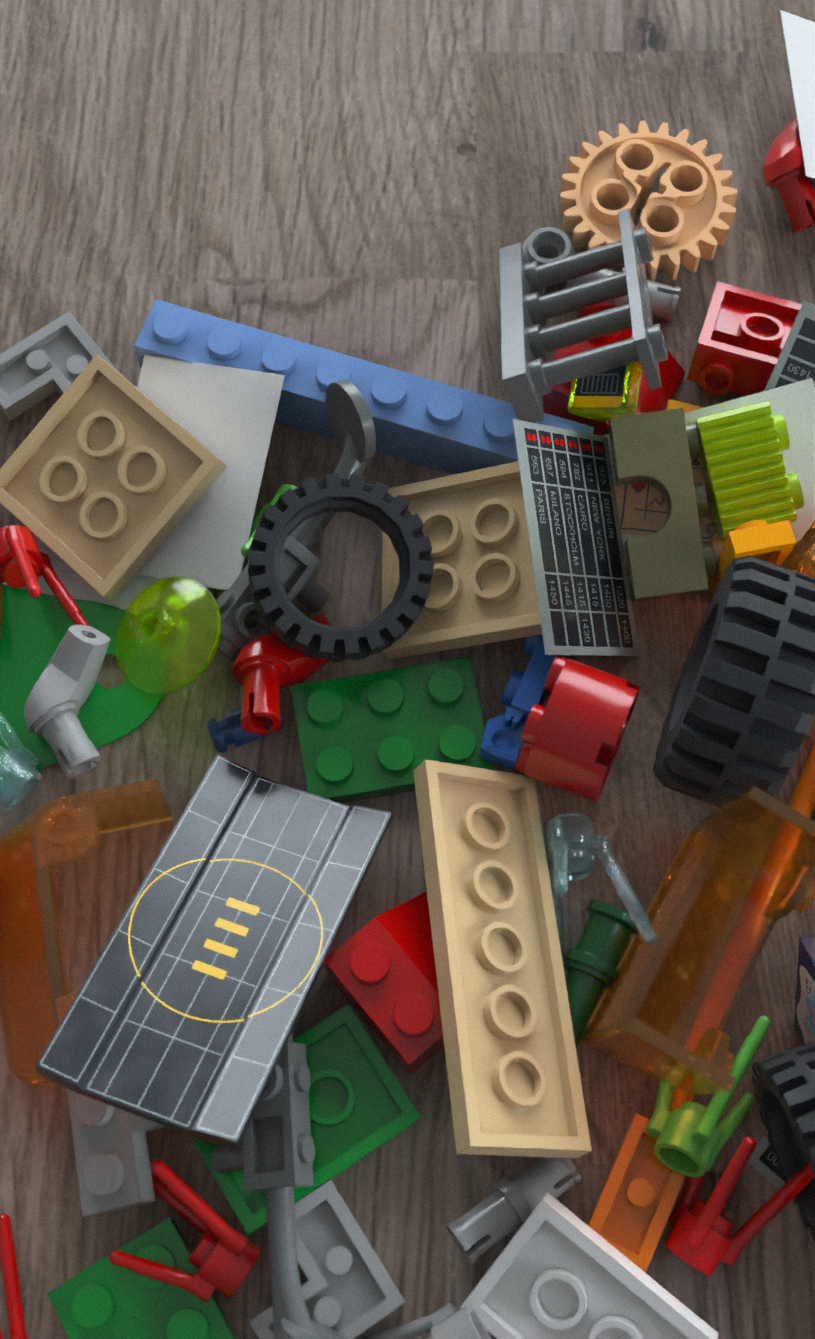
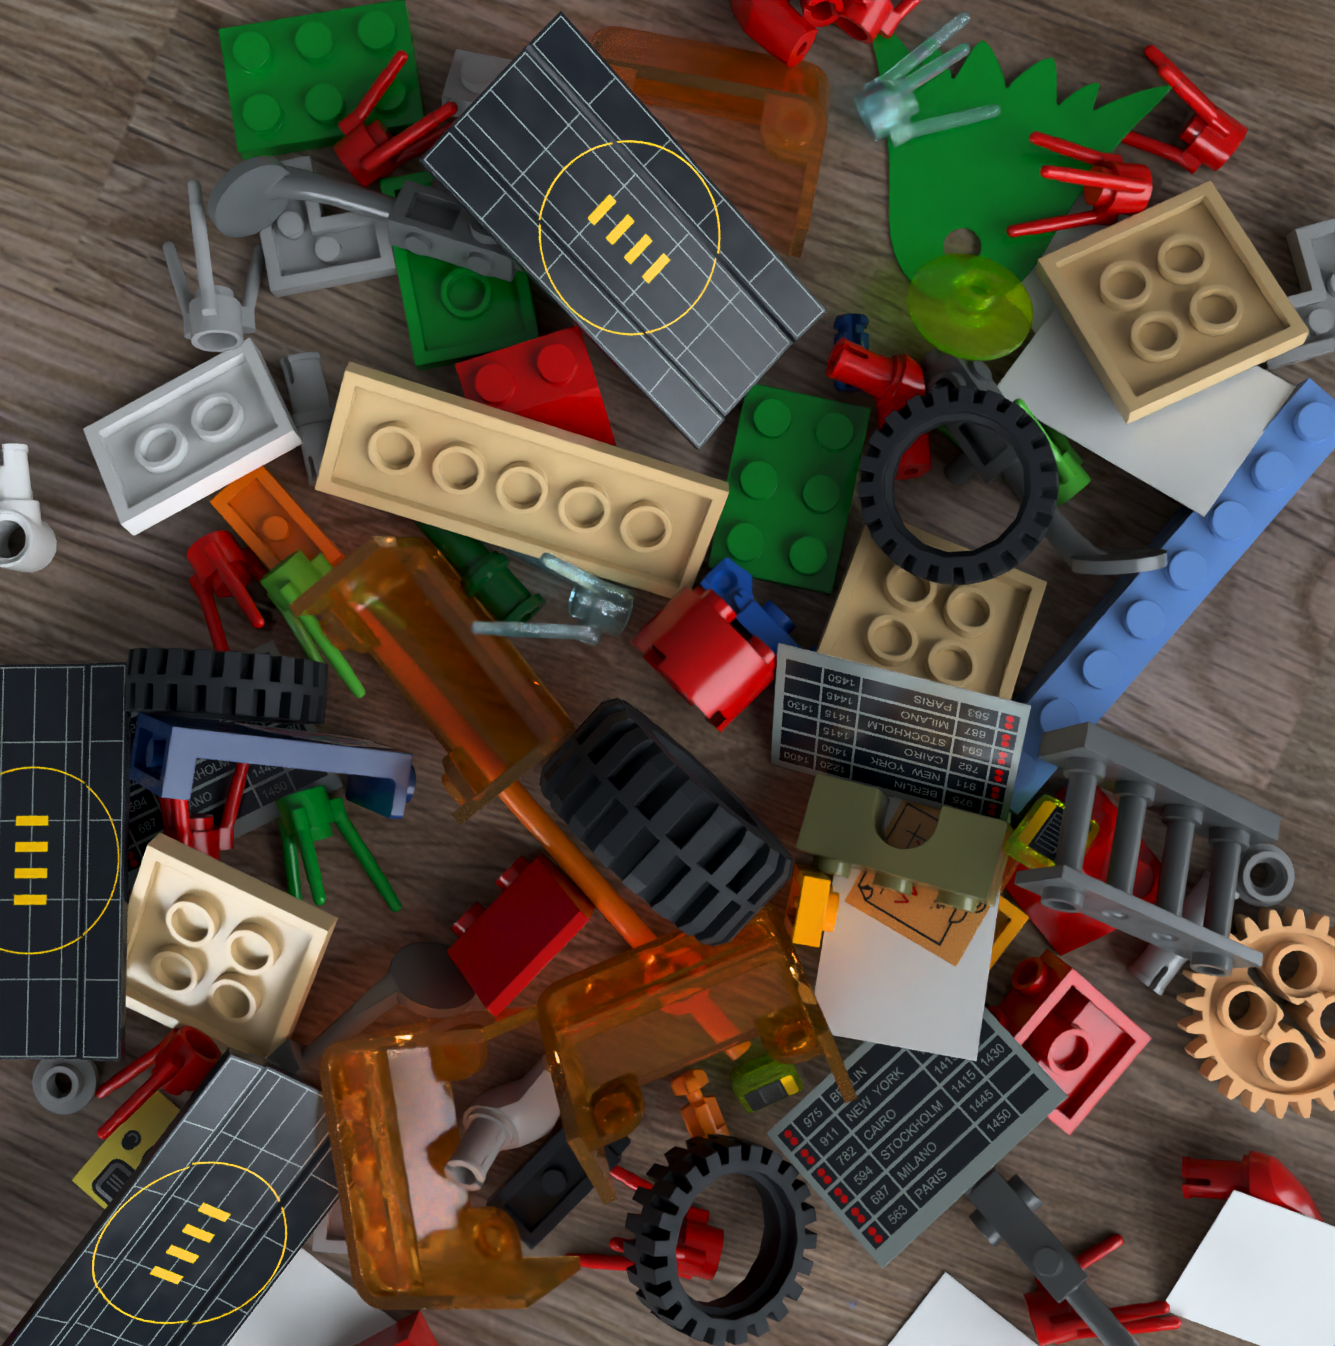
camera: 115 degrees right, 20 degrees up
(61, 693) = (949, 182): light grey arm -> none
(747, 467) = (901, 942): lime brick -> none

